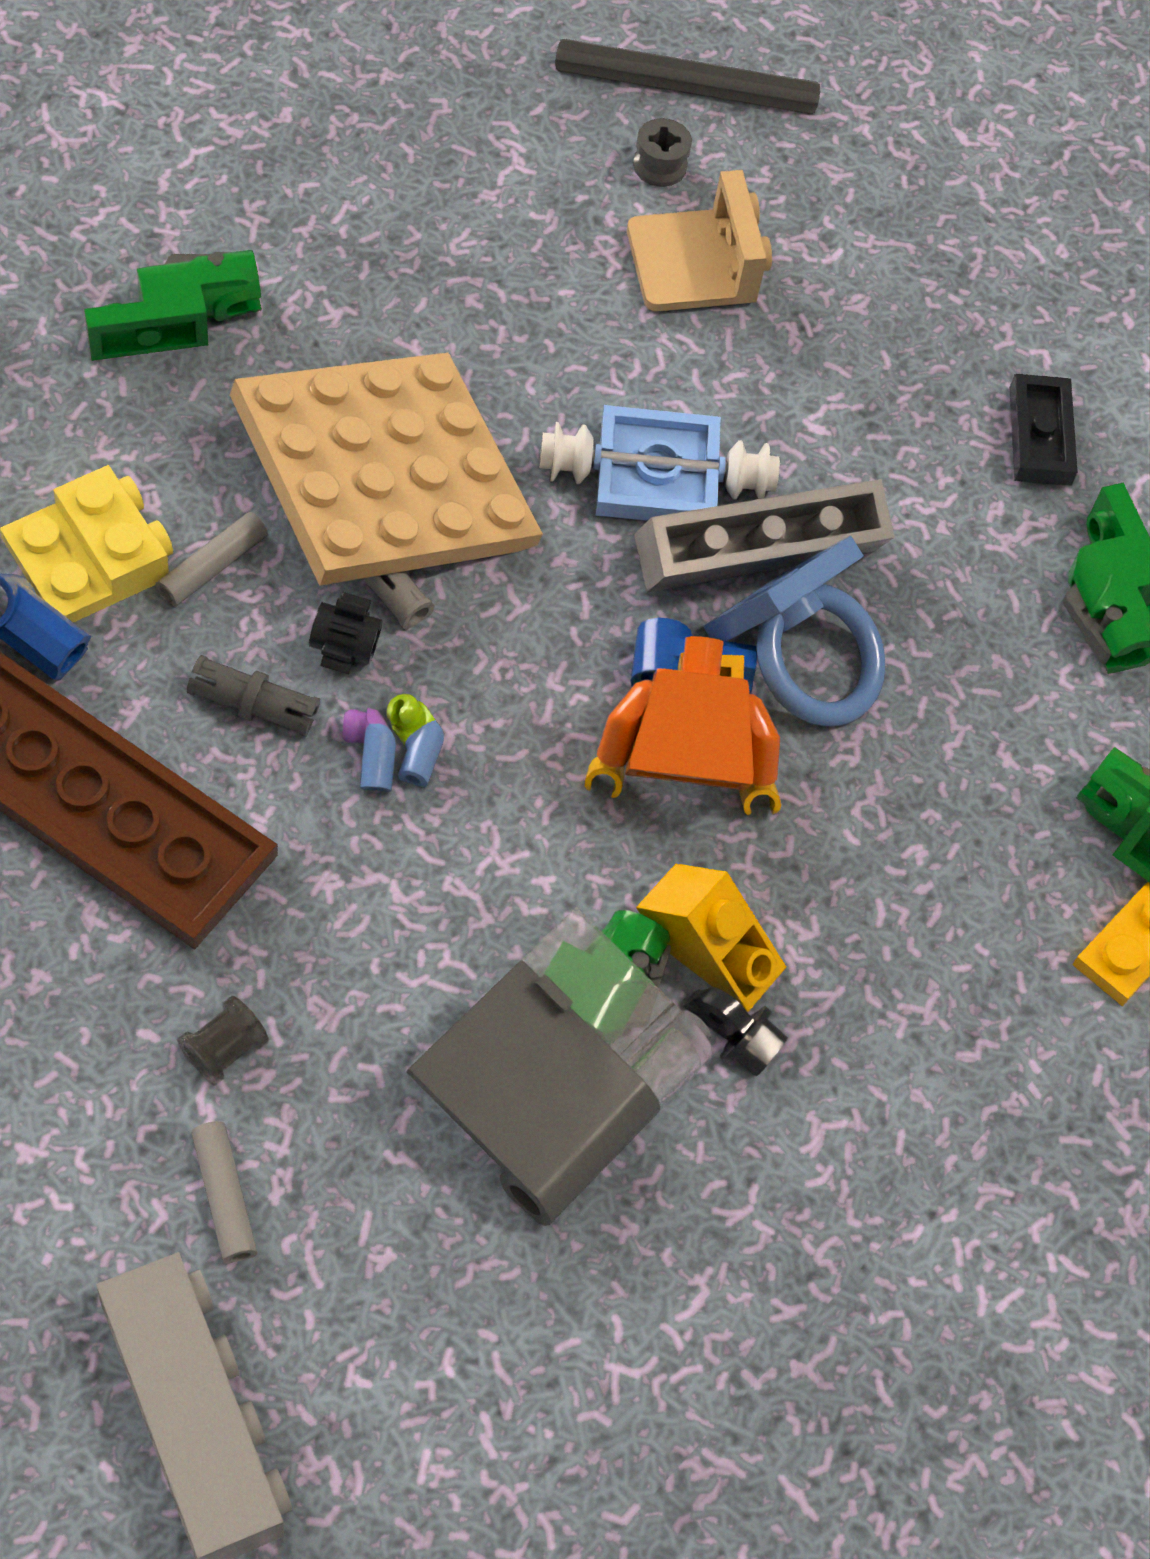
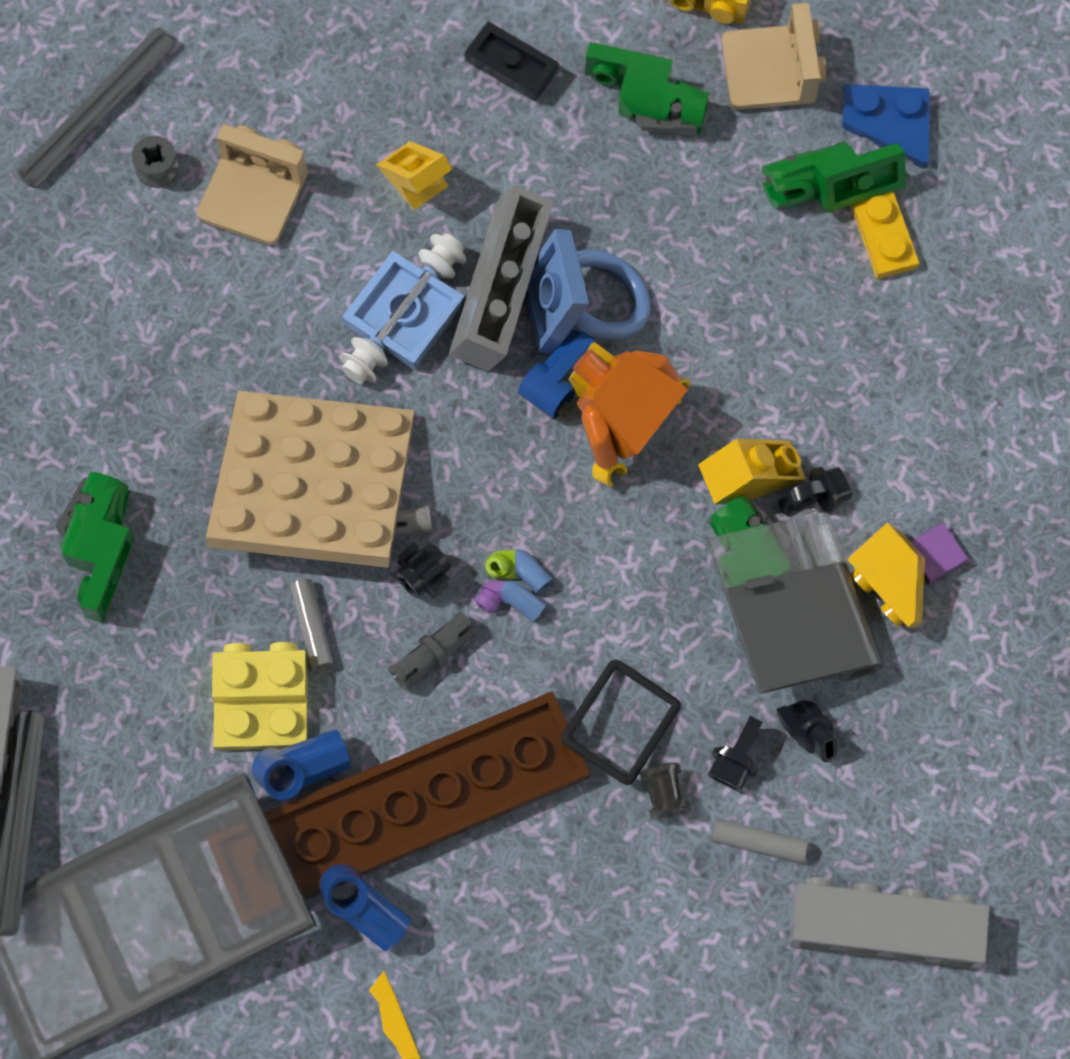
camera: 50 degrees left, 10 degrees up
(281, 997) = (589, 700): none -> black piece
(307, 1103) = (733, 765): none -> black piece
(410, 1176) = (809, 728): none -> black piece
(684, 1170) = (894, 571): none -> yellow slope
(751, 1218) = (940, 552): none -> medium lavender tile
(830, 402) = (416, 172): none -> yellow slope

